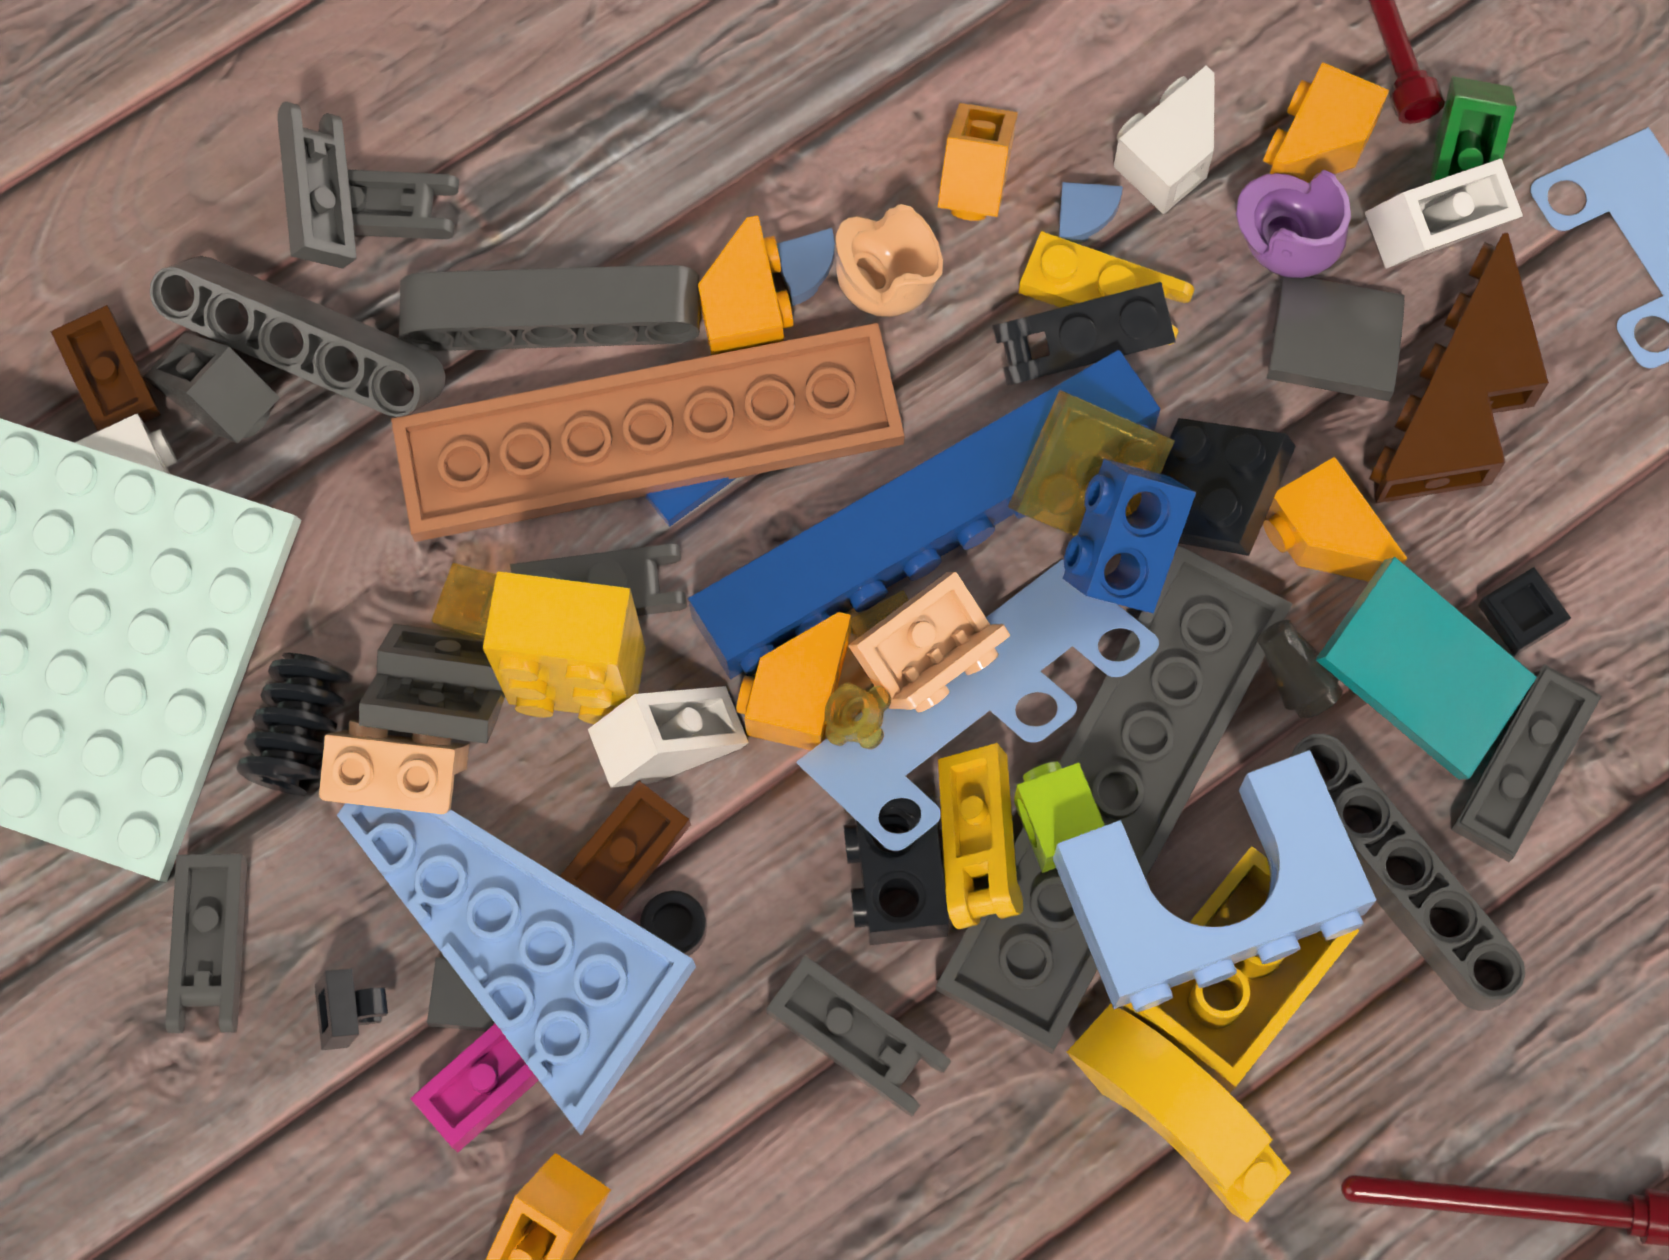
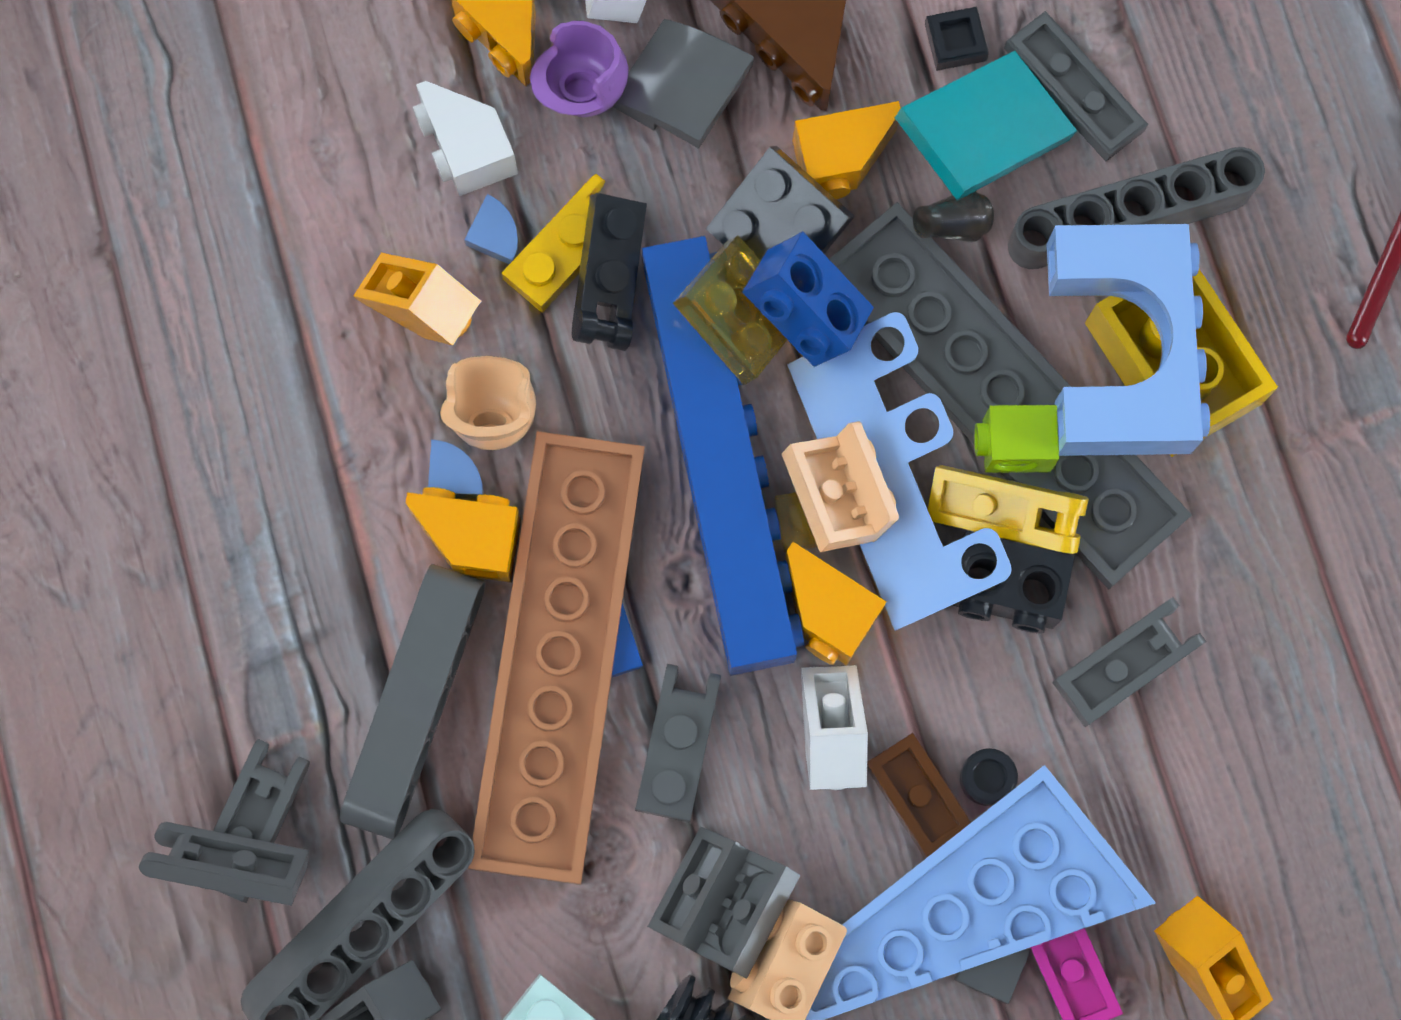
camera: 75 degrees left, 5 degrees up
(465, 601) = (660, 850): clear yellow plate -> none
(563, 645) = (749, 776): yellow brick -> none
(842, 711) = (880, 582): clear yellow plate -> none
(1183, 1106) = (1265, 438): yellow arch -> none

